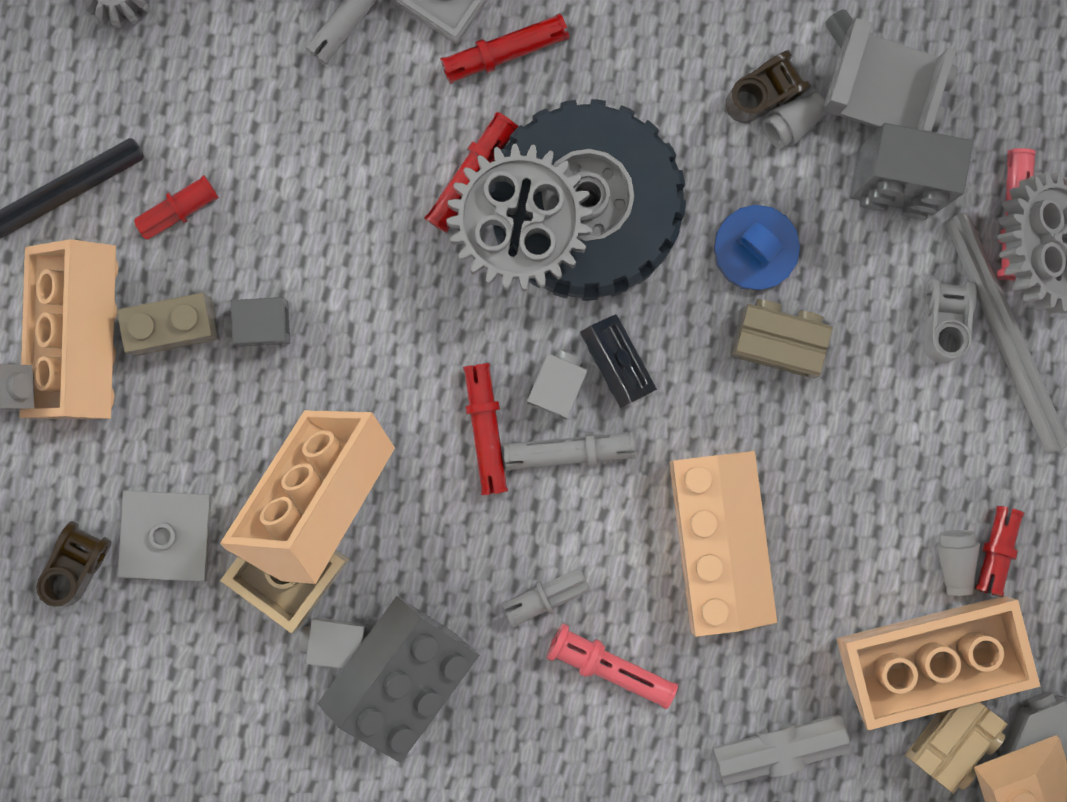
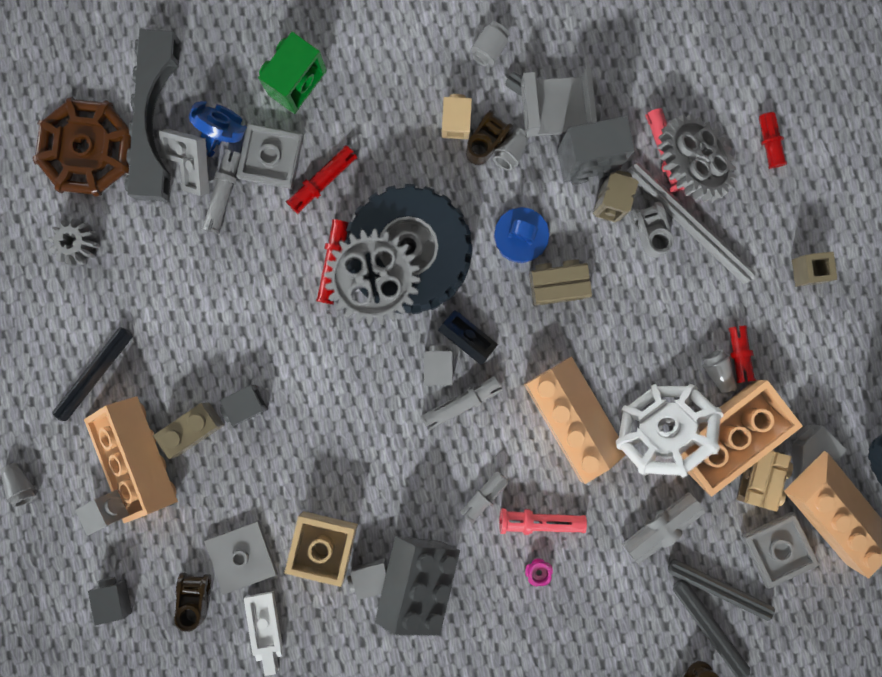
camera: 20 degrees left, 0 degrees up
(155, 651) = (264, 630): none -> white hinge
(175, 208) = (164, 358): red axle -> none
(310, 494) = (316, 498): light nougat slope -> none
(485, 428) = (406, 412): red pin -> none
(582, 748) = (539, 580): none -> dark pink plate
(734, 40) = (456, 117): none -> tan brick
(851, 630) = (672, 443): none -> white plate
(913, 249) = (616, 196): none -> dark tan brick

